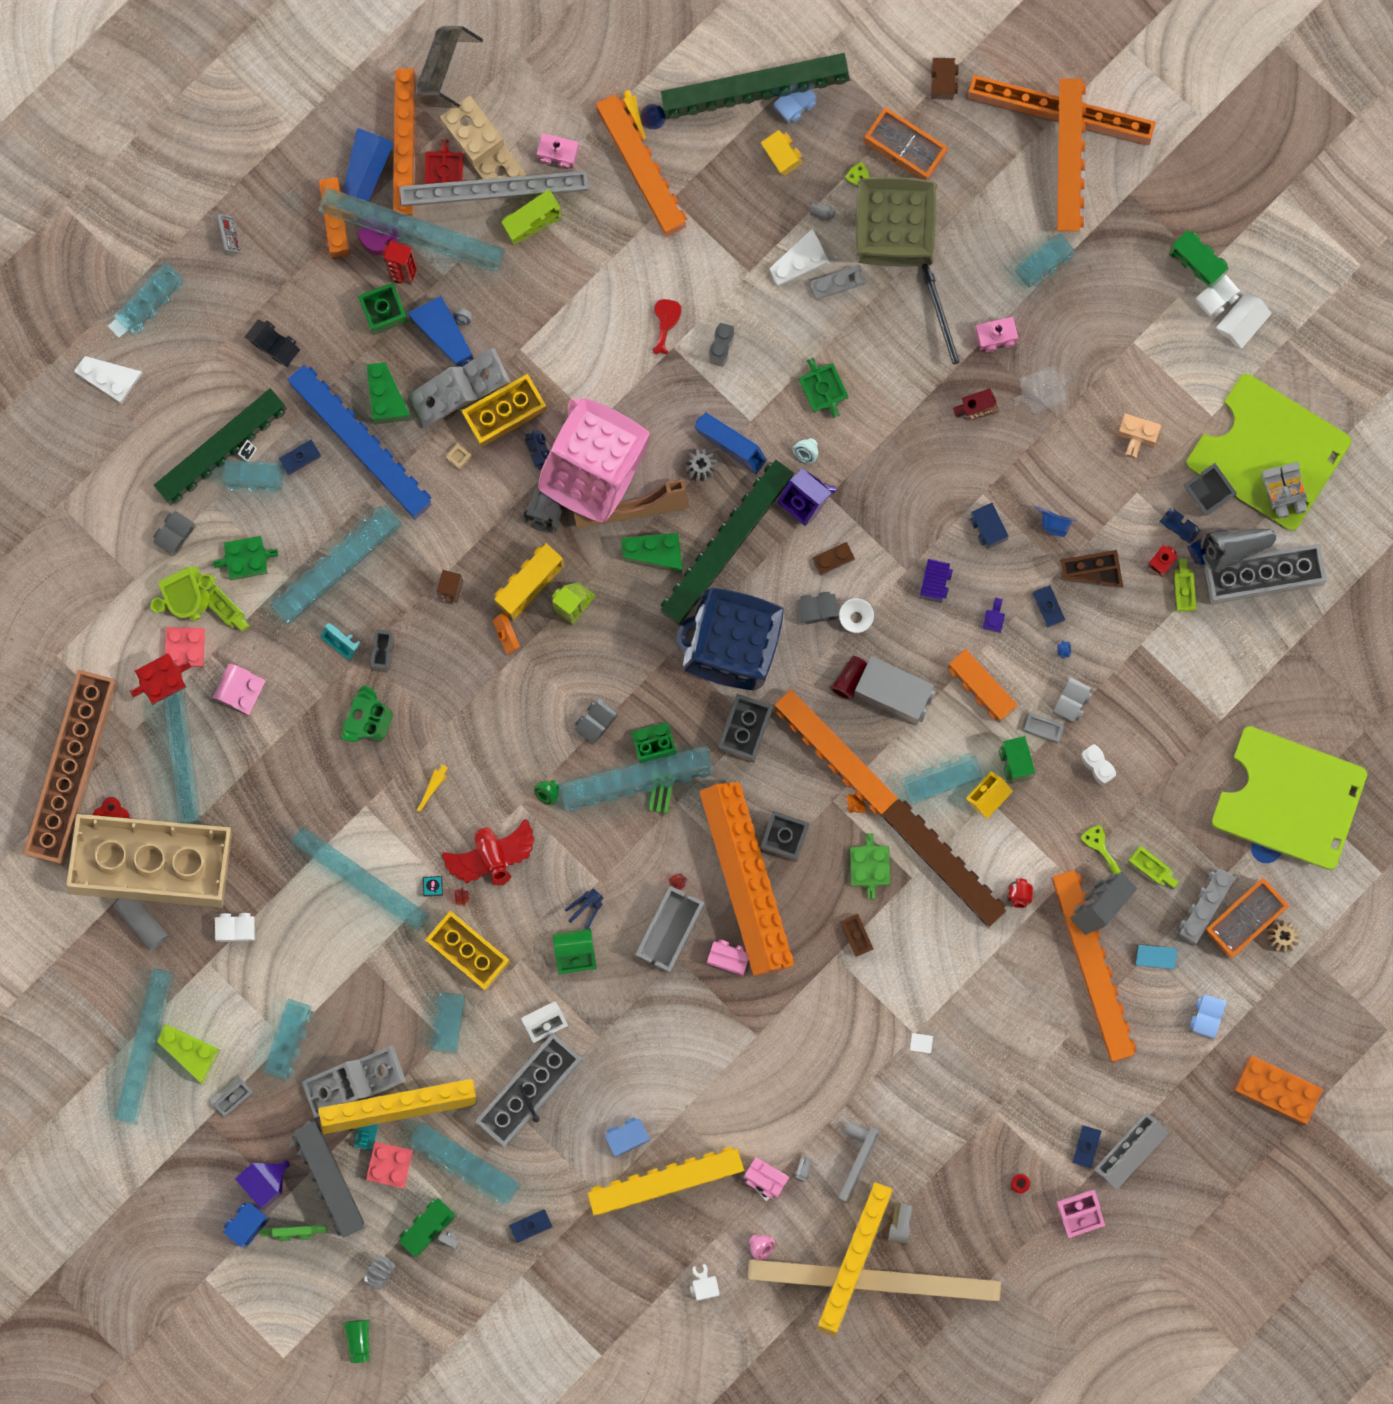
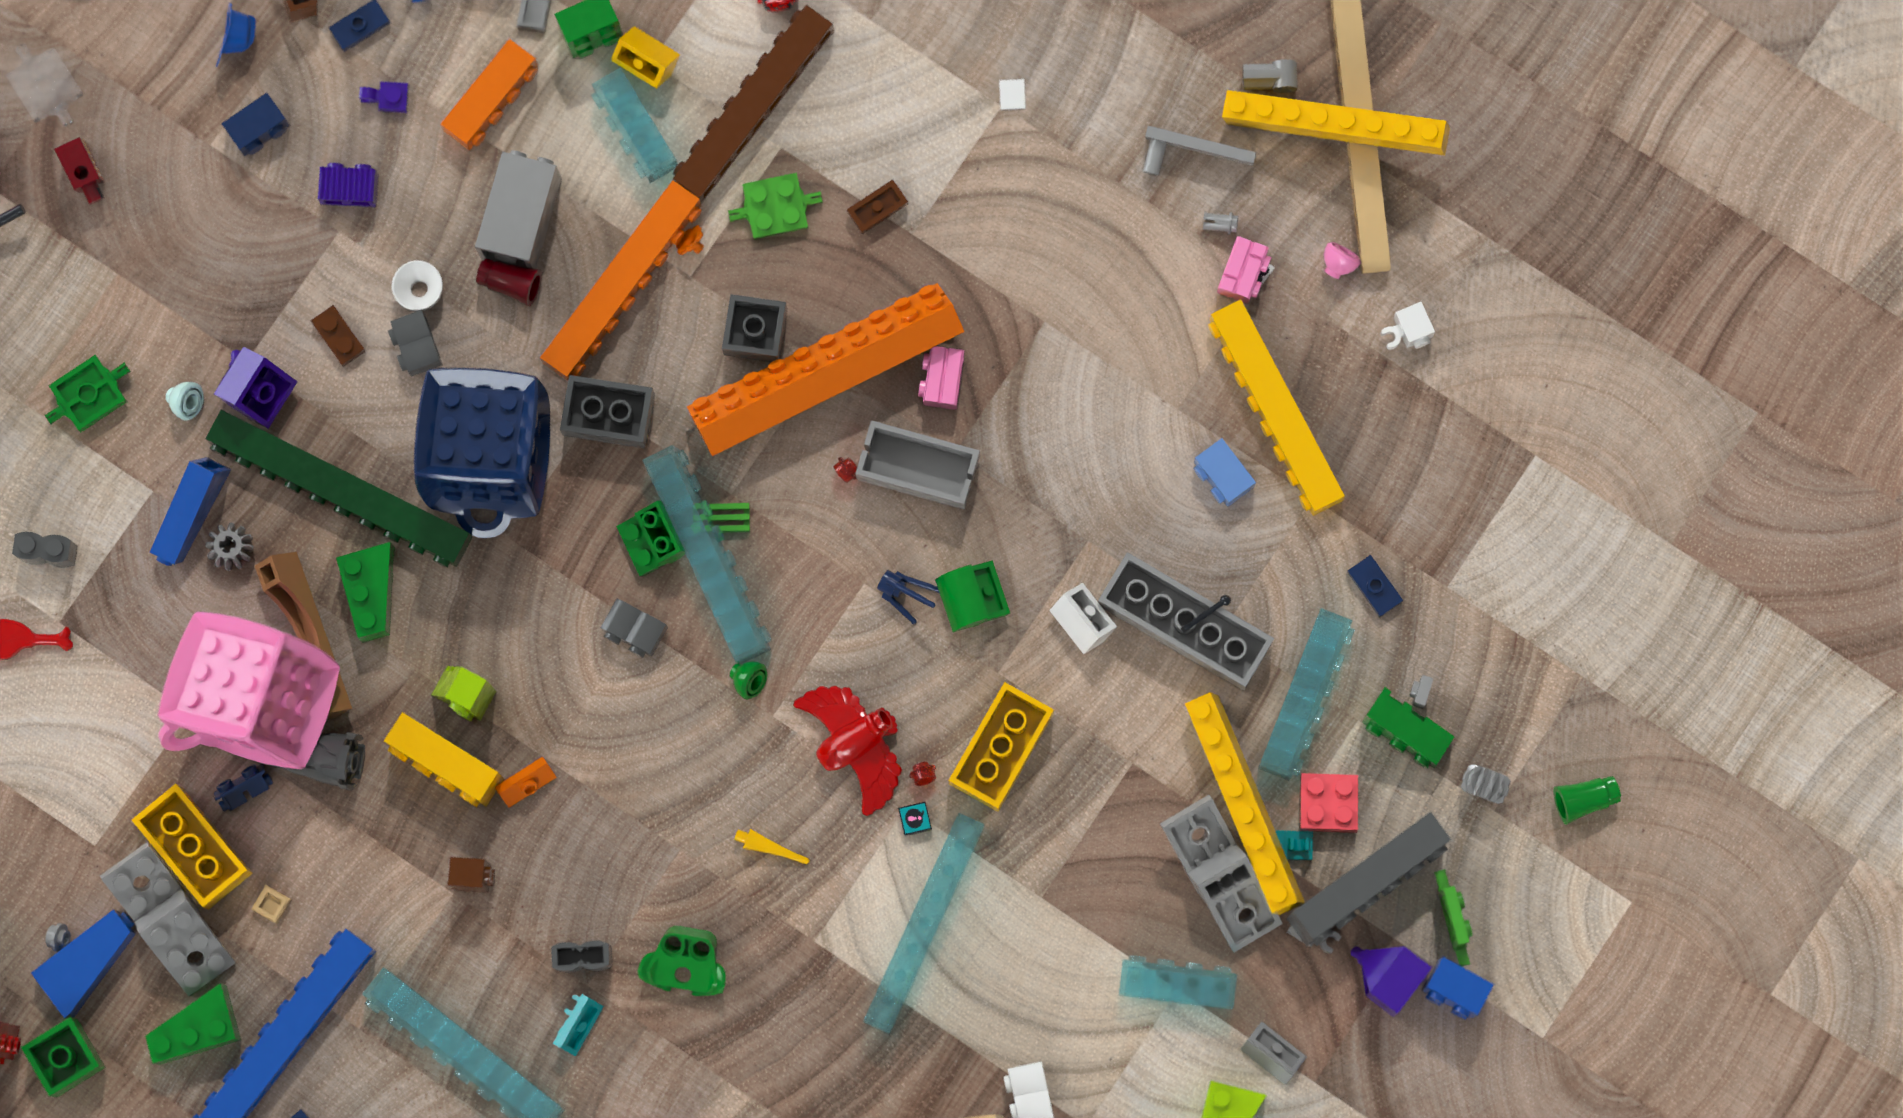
camera: 100 degrees left, 0 degrees up
(447, 1022) = (1109, 757): clear light blue brick -> none

